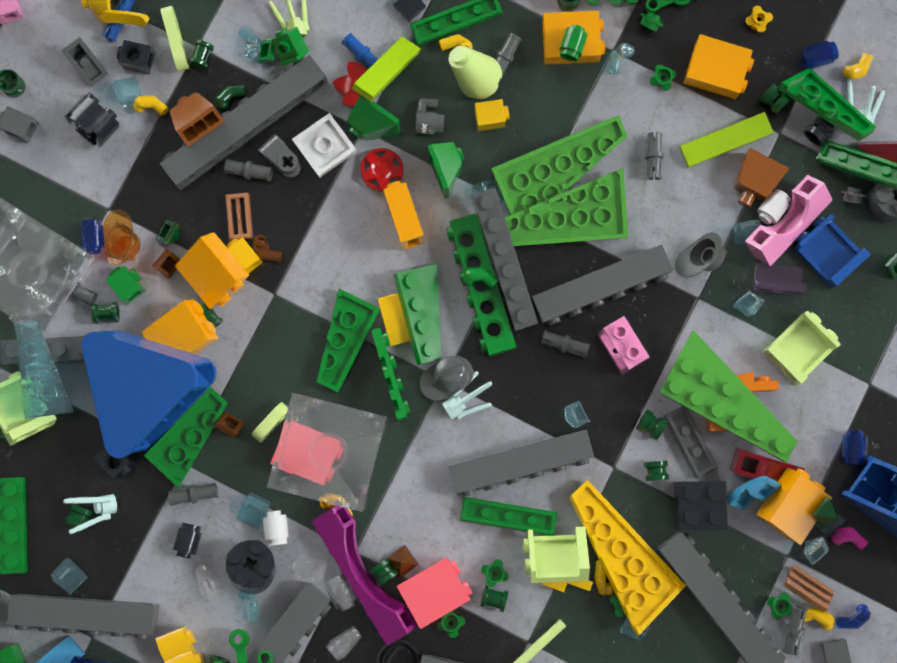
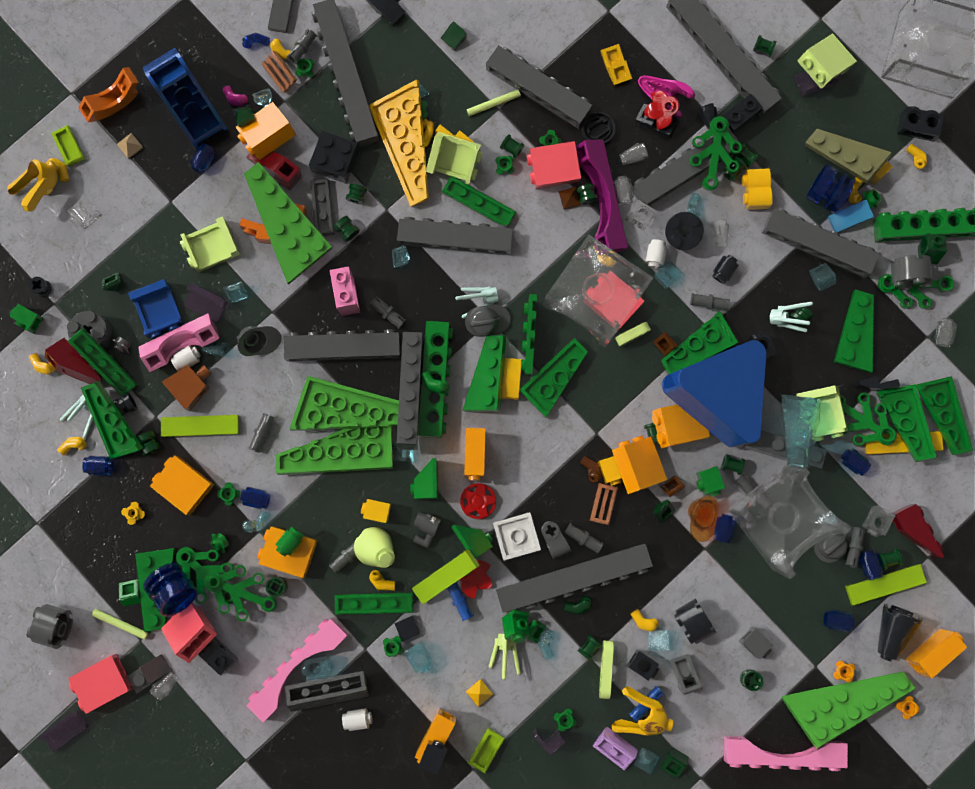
camera: 160 degrees left, 0 degrees up
(194, 118) = (613, 593): dark orange torso -> none
(631, 82) = (255, 498): none -> clear blue brick
(758, 488) = (289, 151): dark azure slope -> none

